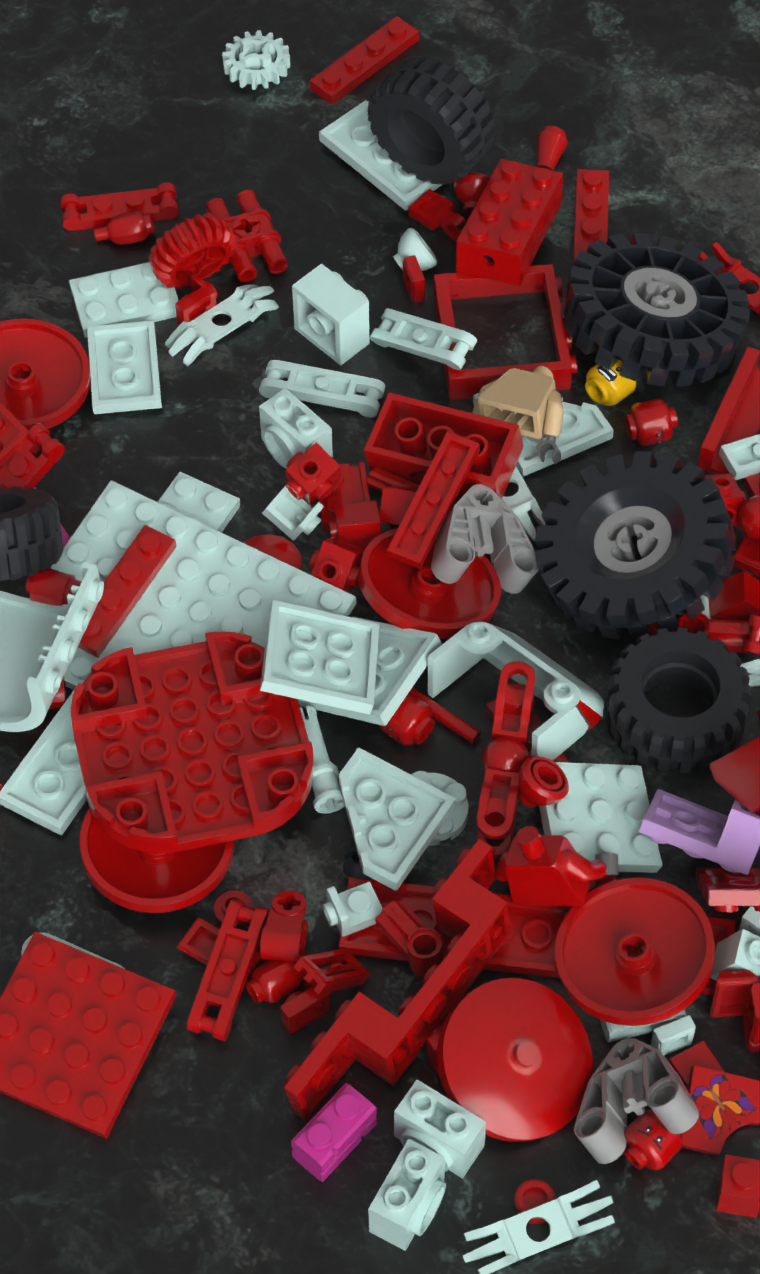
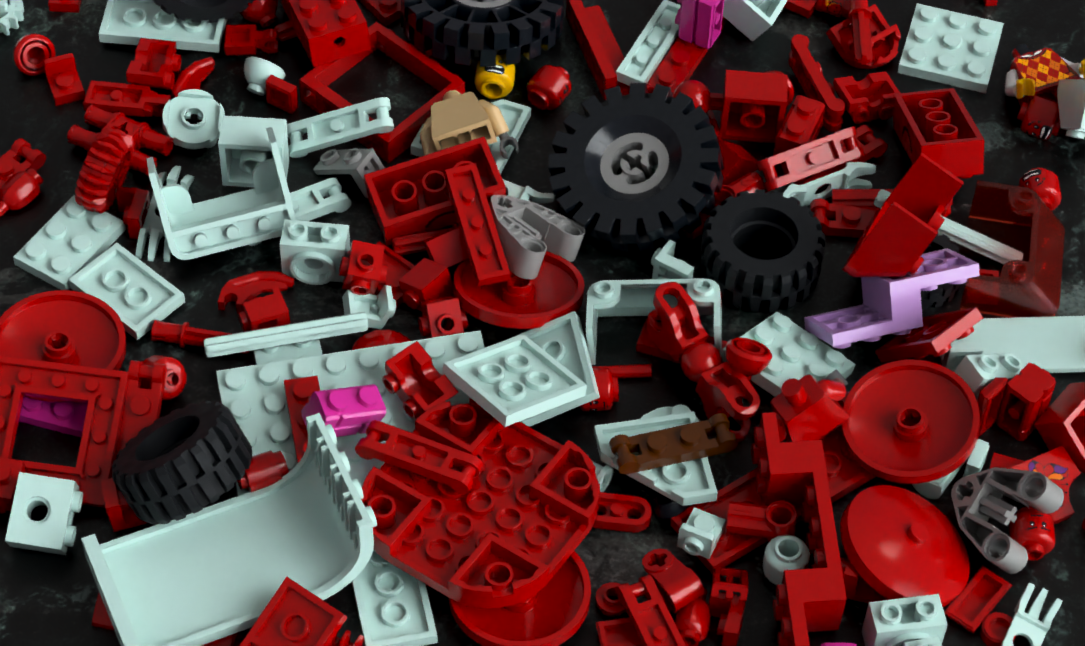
camera: 45 degrees left, 5 degrees down
(82, 458) = (175, 375): none -> red head
(133, 437) = (182, 334): none -> red axle
(156, 583) = (347, 409): none -> dark pink brick
(177, 666) = (419, 455): none -> red plate
(199, 489) = (285, 334): none -> light aqua axle
(206, 461) = (264, 312): none -> red brick
(220, 428) = (251, 285): none -> red piece
(245, 358) = (228, 219): none -> light aqua windscreen
(246, 598) = (416, 381): none -> red cylinder
(250, 117) = (31, 52): none -> red brick
(257, 155) = (63, 79): none -> red bracket
(286, 203) = (125, 98): none -> red hinge
(315, 839) = (618, 509): none -> red plate
(319, 238) = (193, 135): none -> light aqua plate
(336, 188) = (154, 64): none -> red cylinder
(351, 223) = (193, 75): none -> red piece
(397, 983) = (782, 554): none -> light aqua head
(400, 813) = (673, 445): none -> reddish brown plate
(406, 377) = (349, 161): none -> light grey bracket
(544, 1159) = (977, 599): none -> red tile
(584, 655) = (667, 266): none -> light aqua bracket

